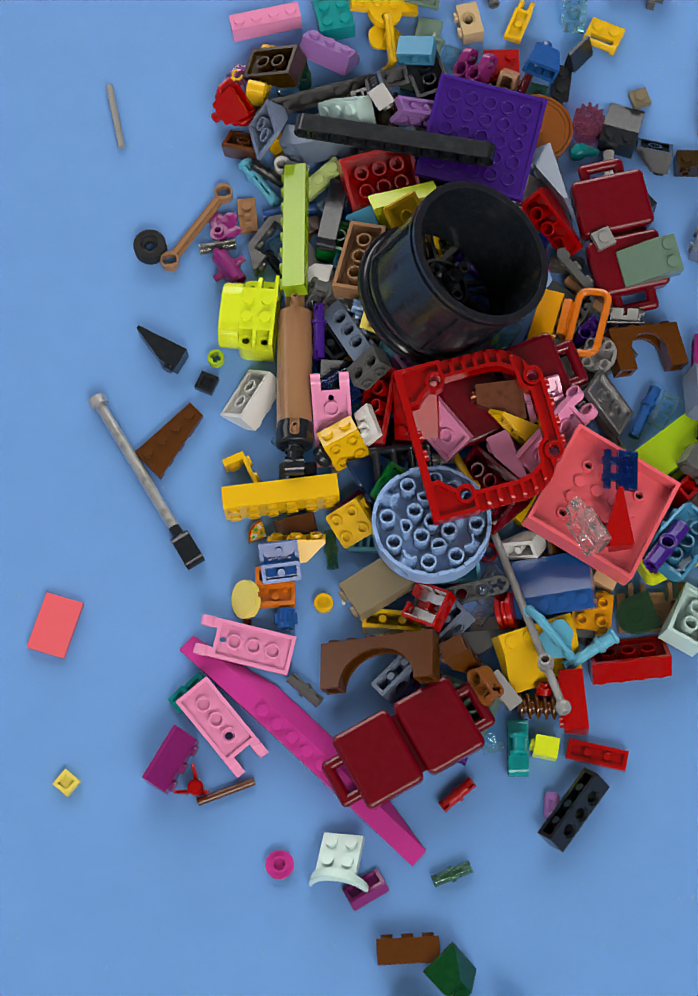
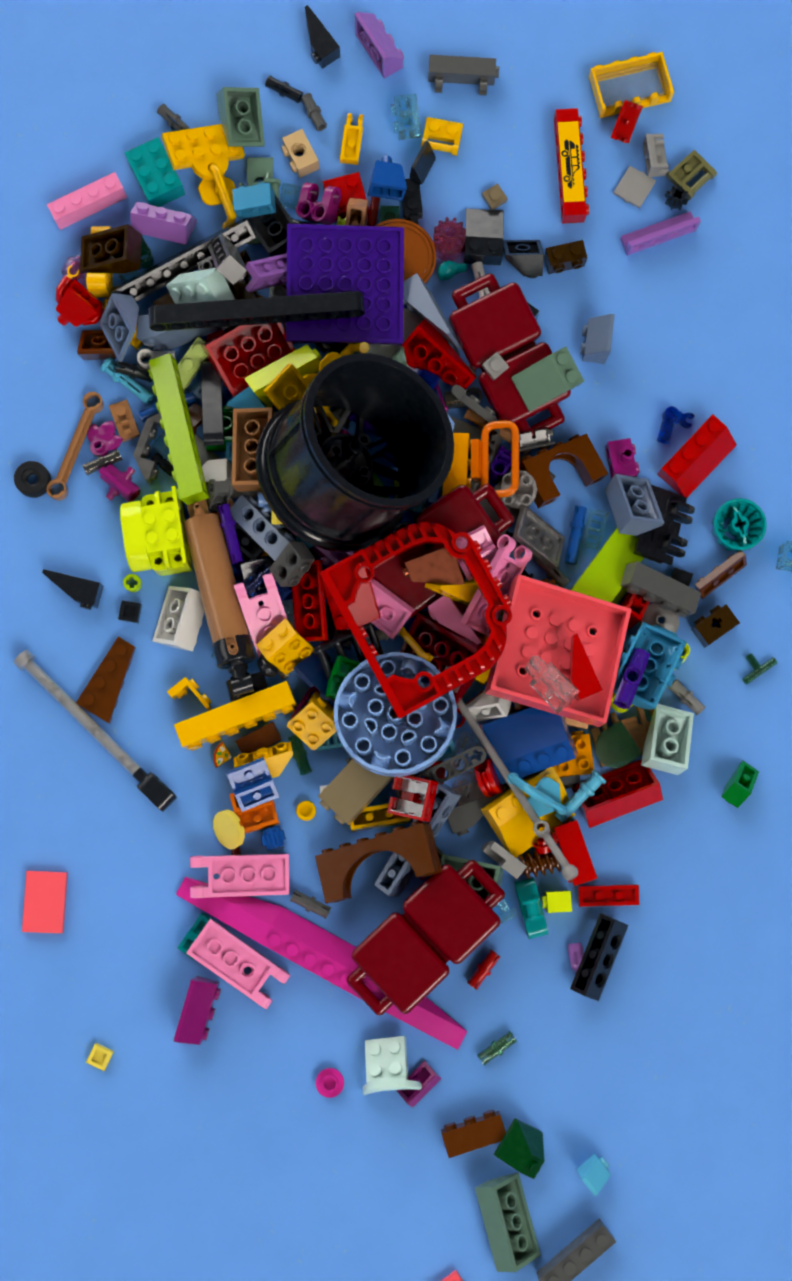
camera: 20 degrees left, 10 degrees up
(195, 786) = (227, 1030): red plant -> none
(226, 791) = (259, 1024): reddish brown bar -> none
(367, 424) = (305, 622): white plate -> none
(459, 654) = (457, 838): reddish brown slope -> none
(485, 683) = (485, 859): dark orange piece -> none
(626, 469) = (576, 614): clear blue plate -> none

